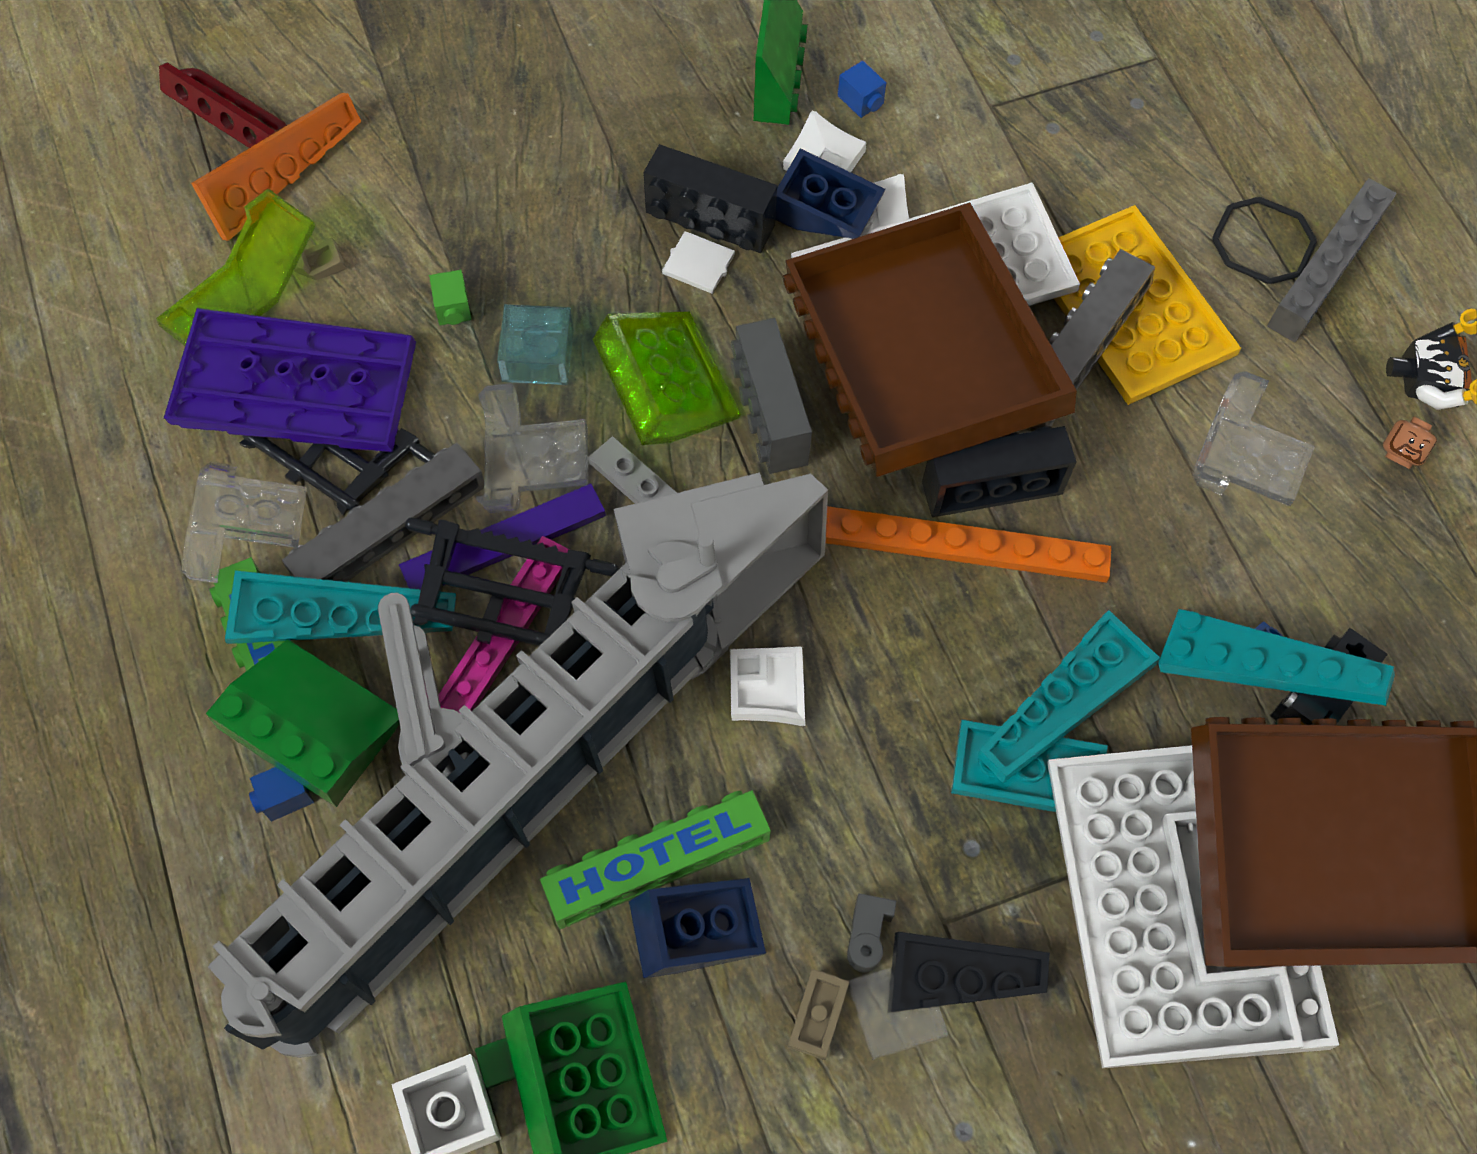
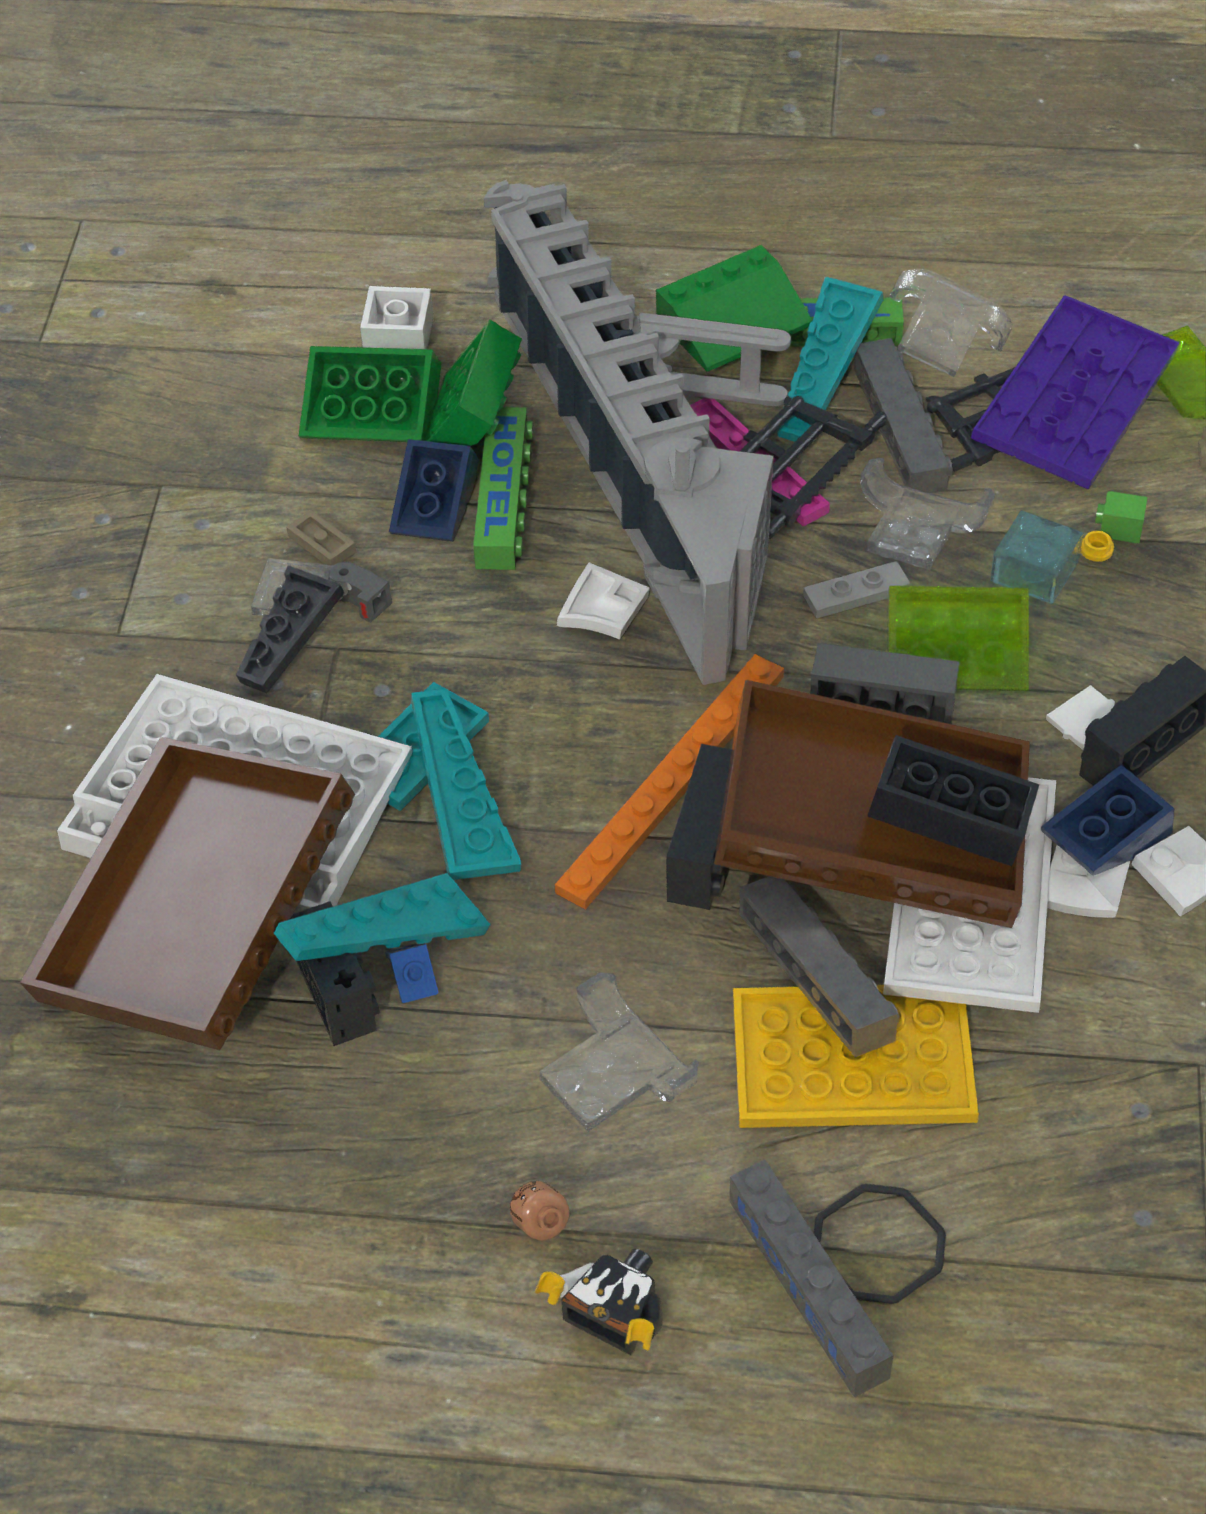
camera: 120 degrees right, 15 degrees down
(489, 304) = (1097, 546): none -> yellow plate
(545, 520) = (847, 506): dark purple tile -> none
(551, 944) = (475, 388): none -> green slope
(919, 258) = (954, 800): none -> black brick

